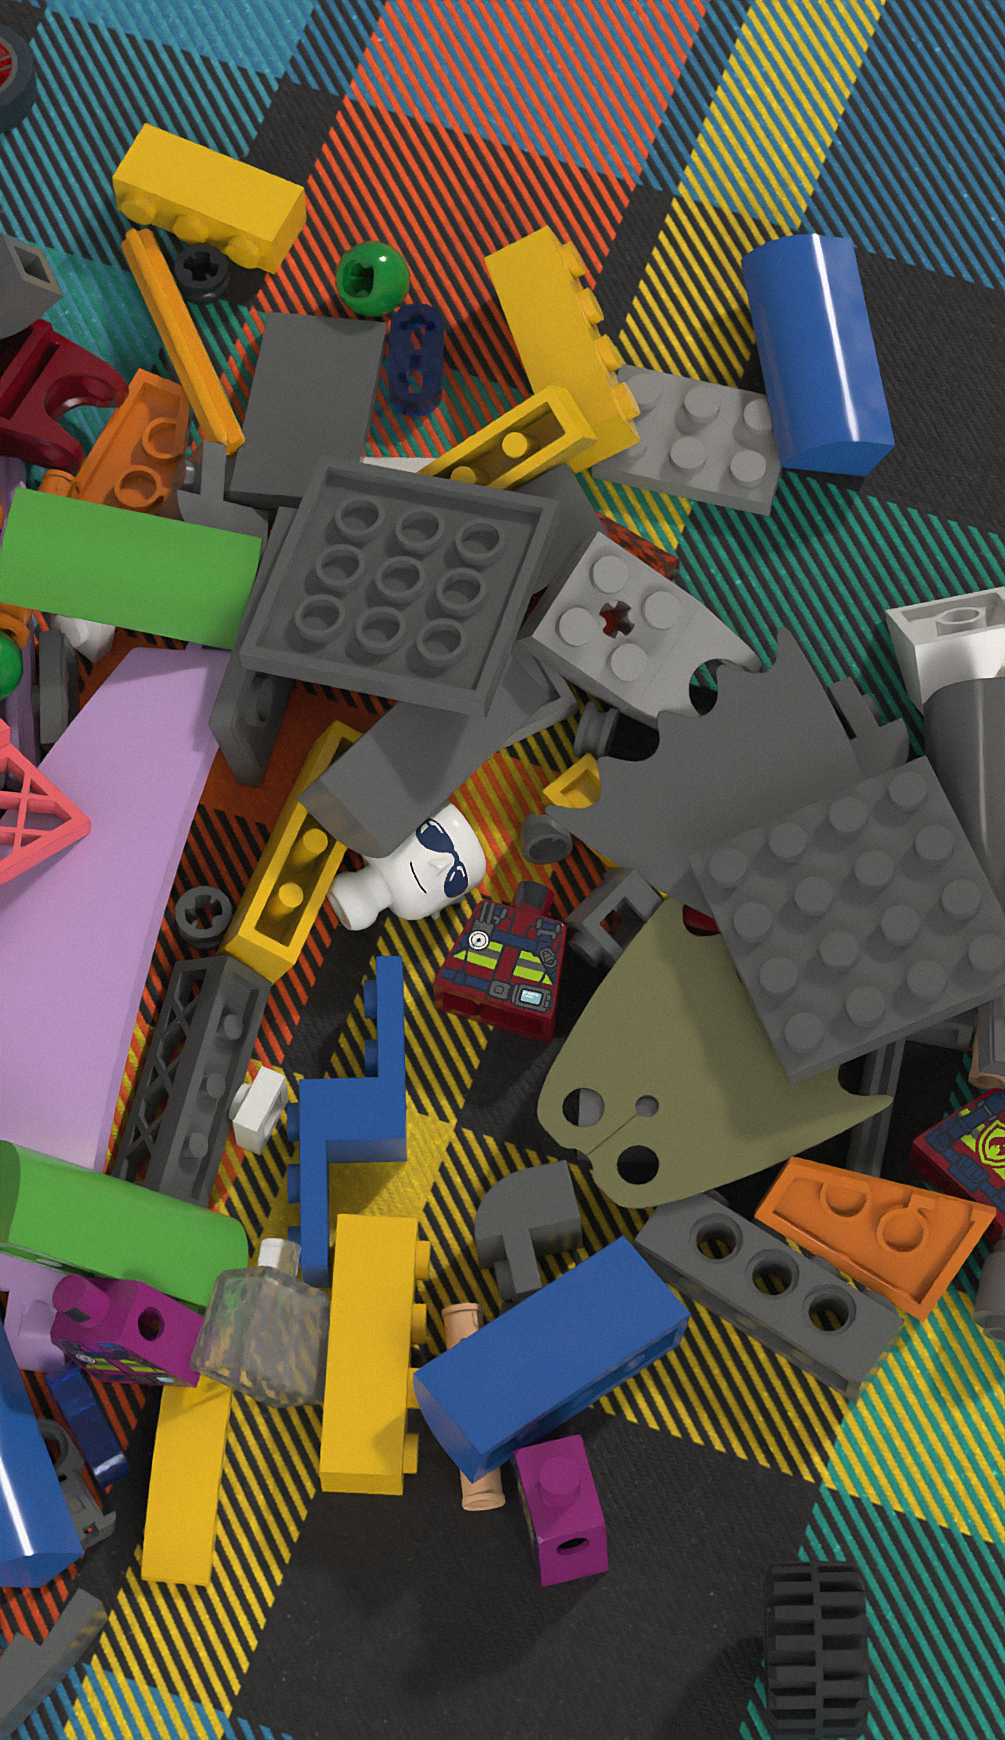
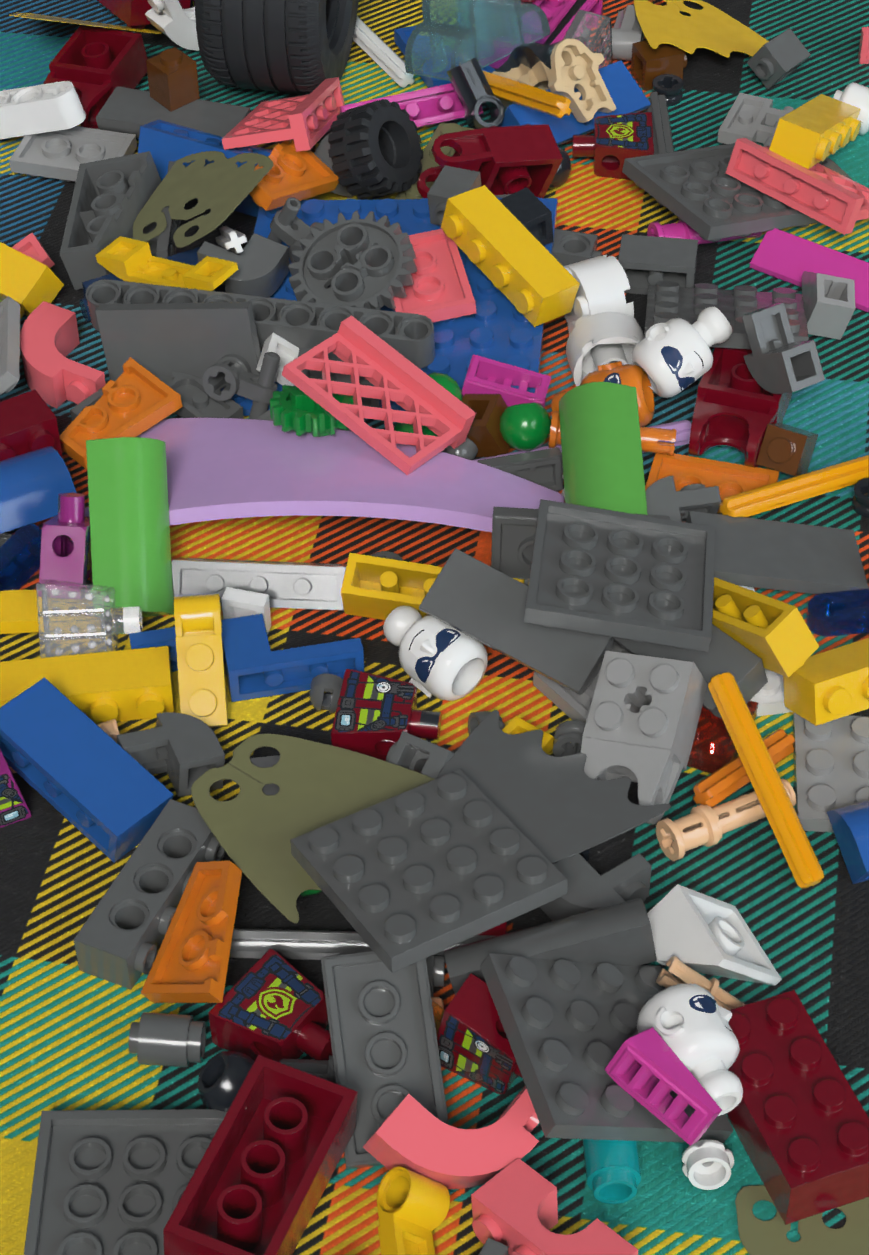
camera: 80 degrees right, 20 degrees down
(112, 335) = (787, 449): none -> reddish brown brick
(337, 1159) = (201, 658): none -> yellow plate
(443, 1026) = (325, 683): none -> dark grey hinge
(683, 542) = (733, 775): none -> orange axle
(729, 517) = (765, 781): none -> light orange axle
(762, 604) = (707, 824): none -> light nougat pin

